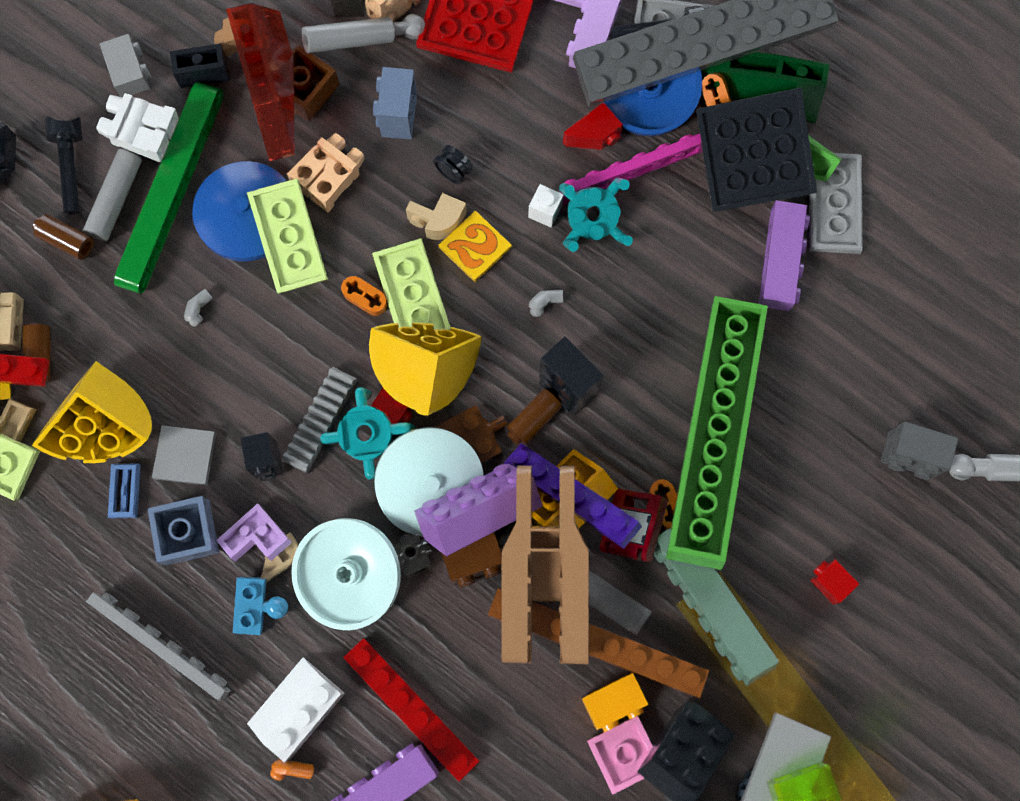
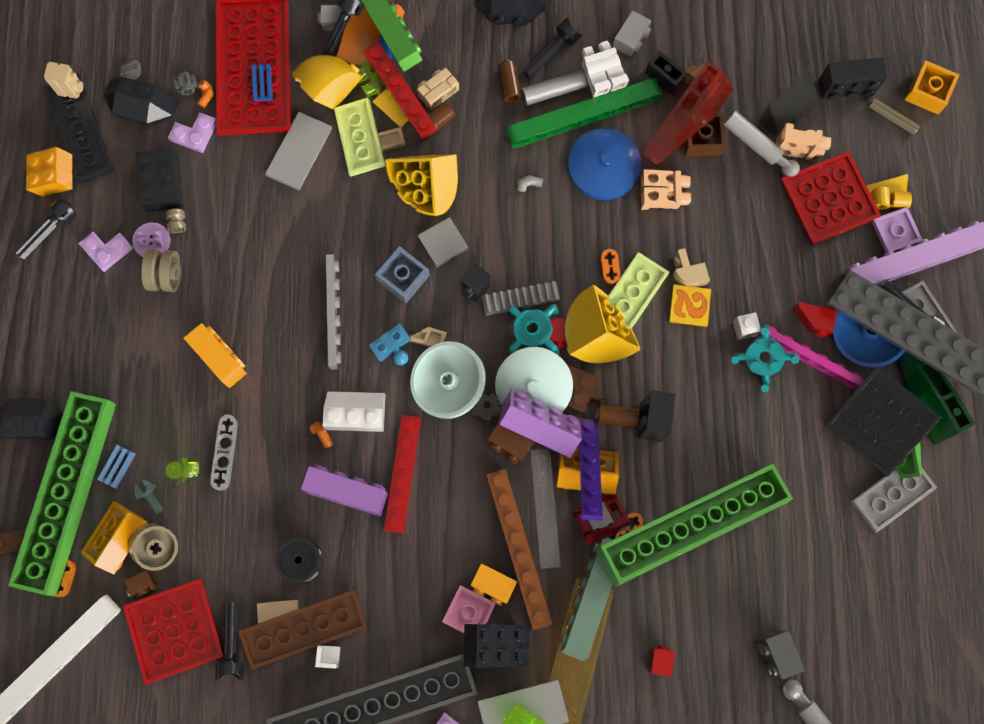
camera: 50 degrees right, 0 degrees up
(134, 494) = (404, 231): medium blue tile -> none
(252, 529) = (432, 311): lavender plate -> none
(287, 236) = (609, 198): yellowish green tile -> none
(396, 103) = (735, 195): sand blue brick -> none
(453, 164) = (726, 255): black wheel -> none
(542, 298) = (692, 367): light grey arm -> none
(545, 567) = (538, 495): medium nougat beam -> none
(722, 90) = (904, 374): orange beam -> none
(783, 255) = (833, 486): medium lavender brick -> none

